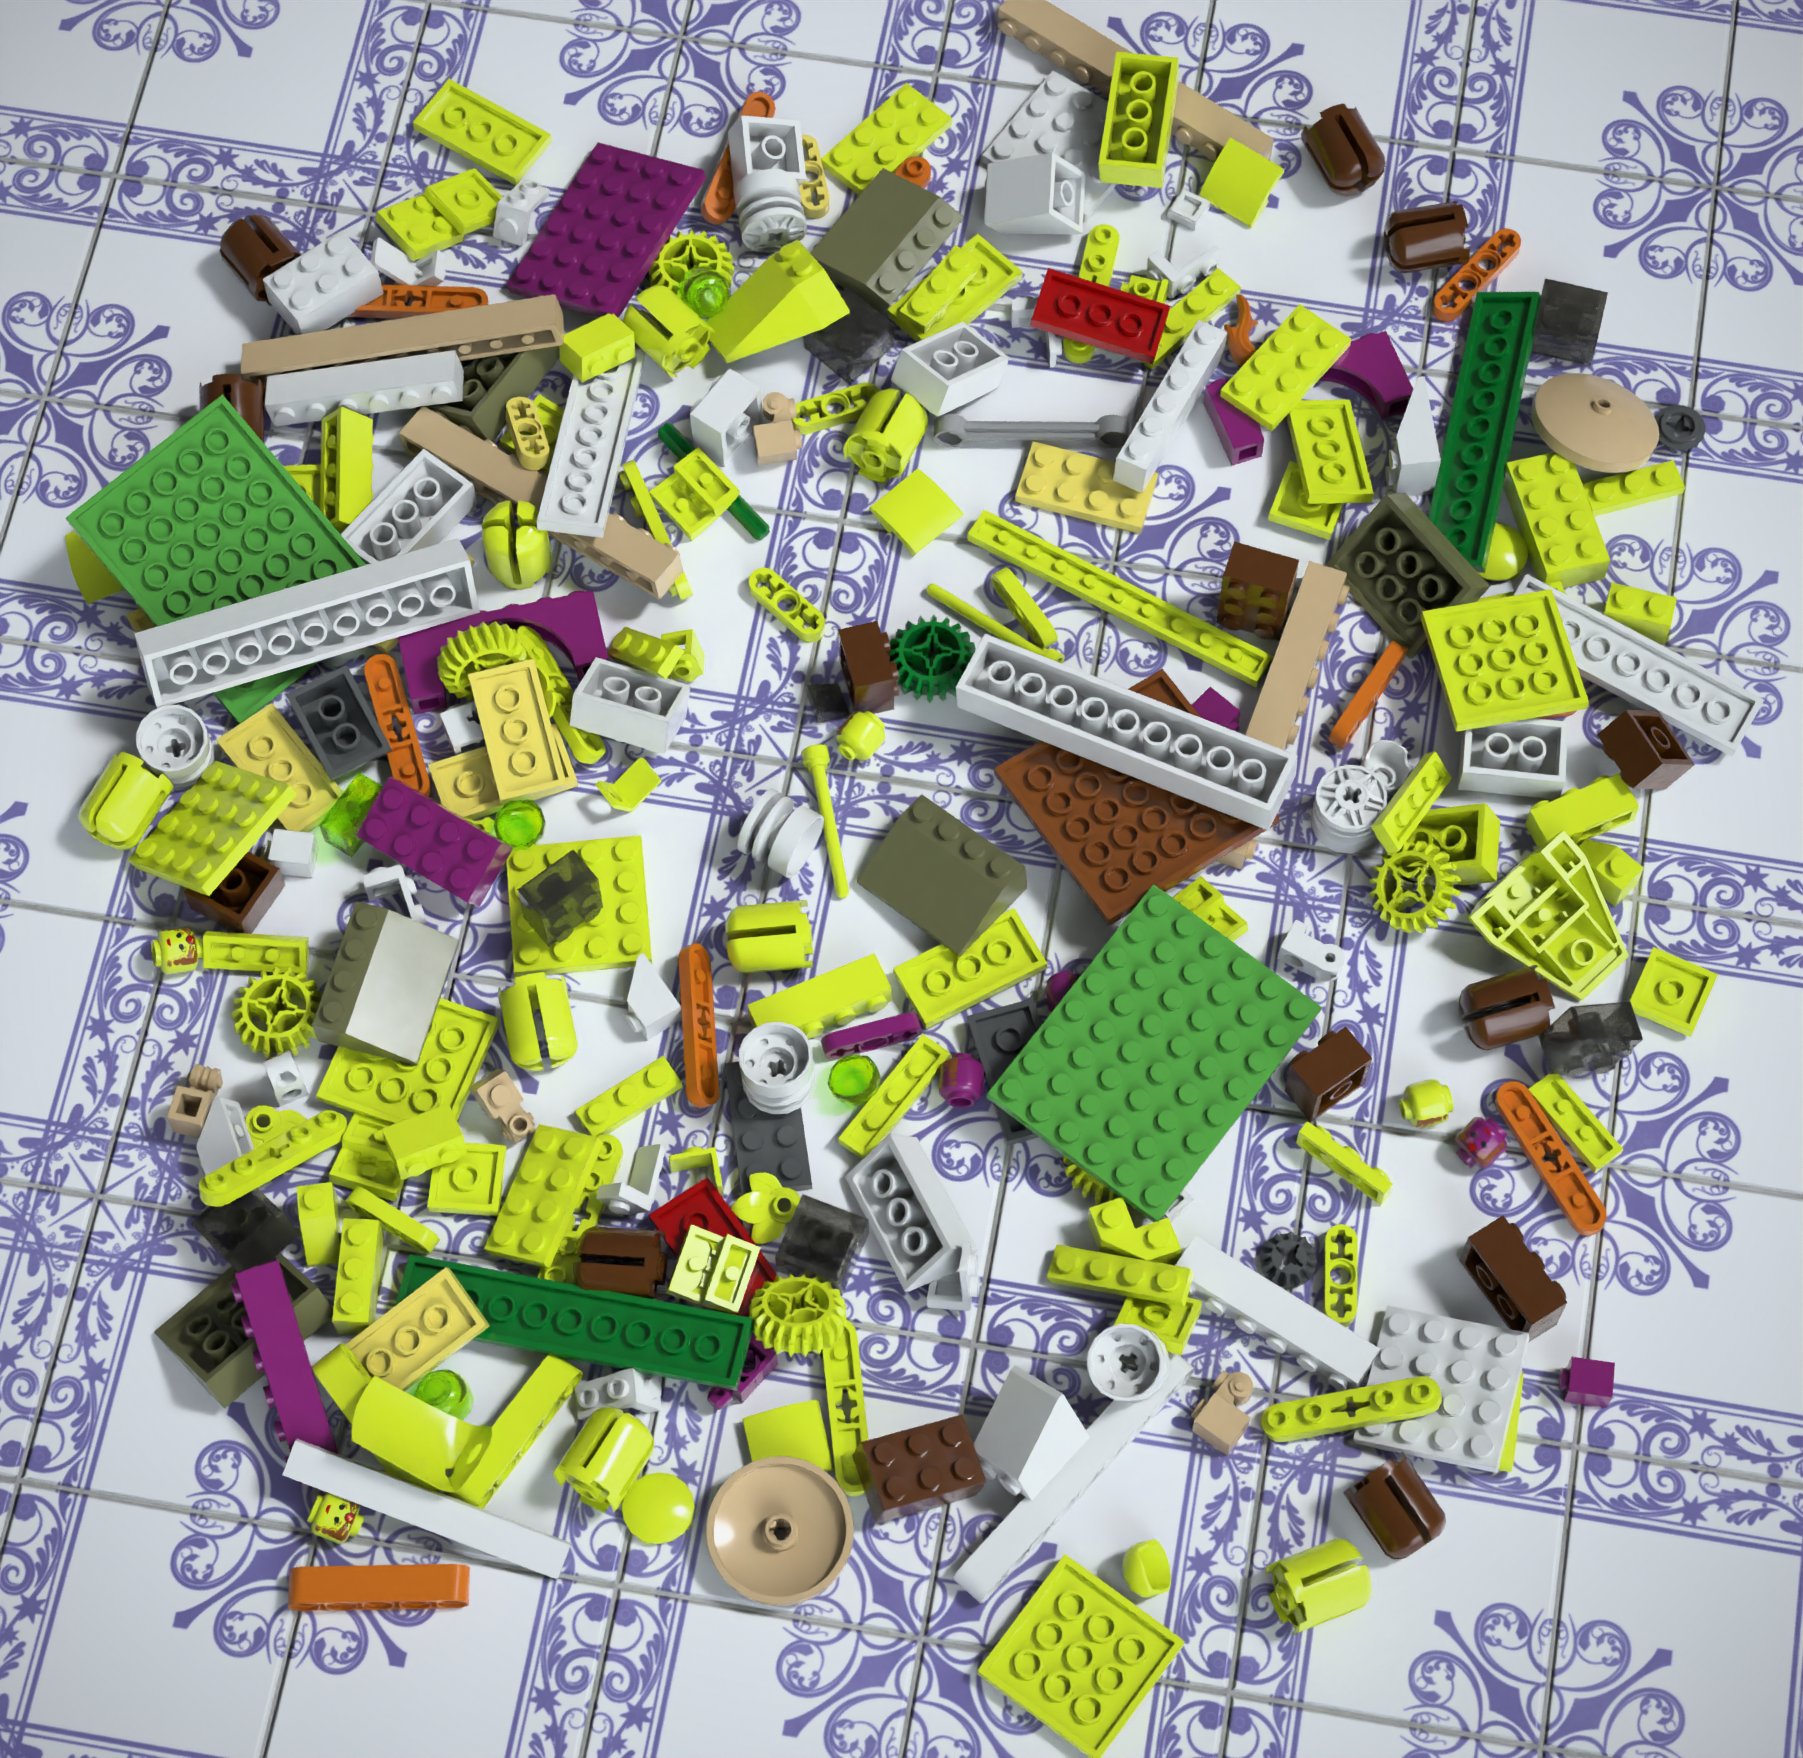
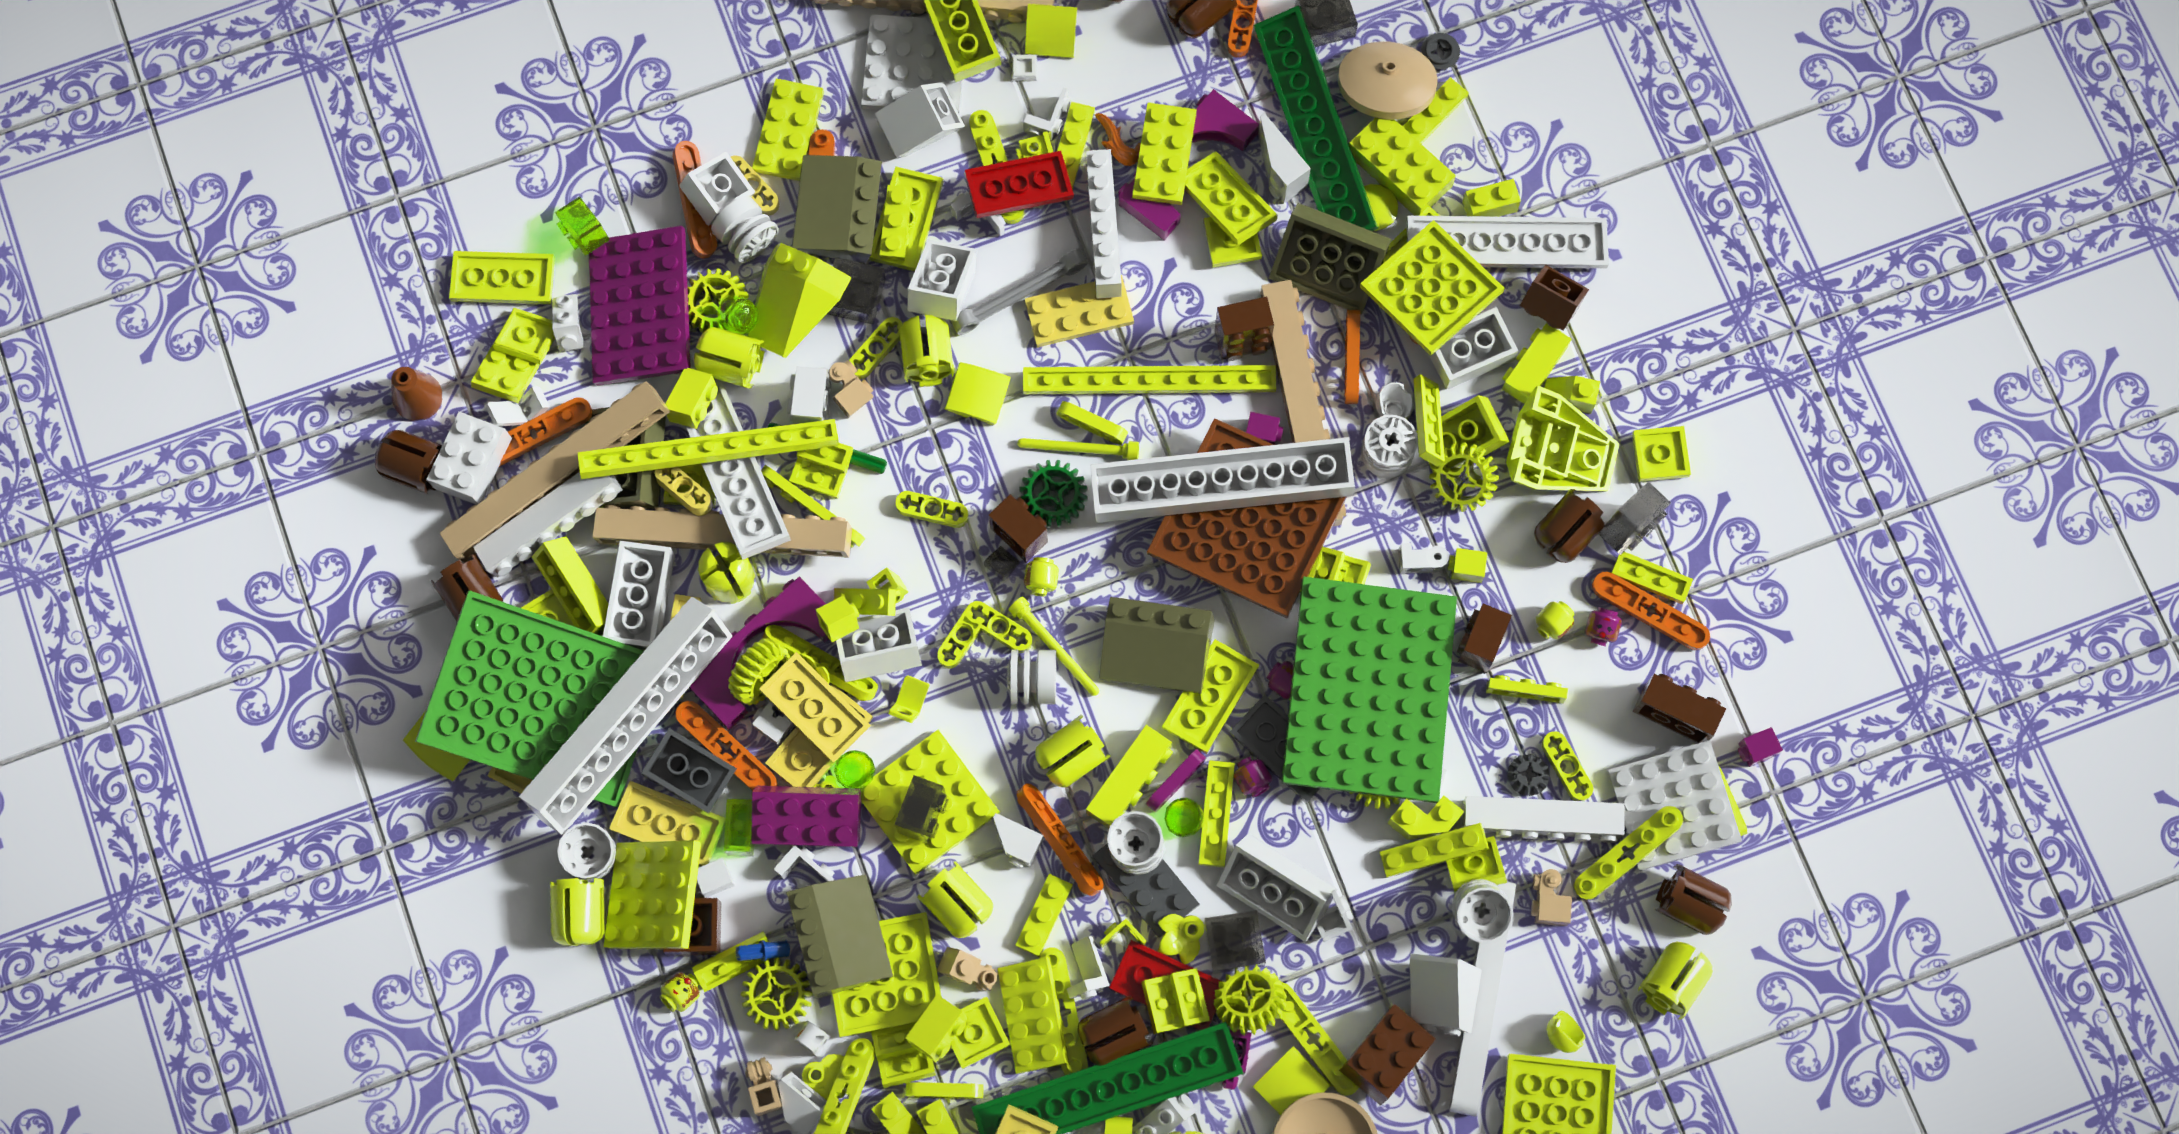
camera: 30 degrees left, 10 degrees up
(292, 954) = (763, 950): none -> blue axle
(312, 194) = (415, 394): none -> dark orange cone
(578, 401) = (707, 449): none -> neon yellow plate
(597, 121) = (581, 226): none -> clear neon green brick
(603, 650) = (838, 618): none -> neon yellow brick
(755, 752) = (975, 626): none -> neon yellow beam
(1361, 988) = (1467, 565): none -> neon yellow brick

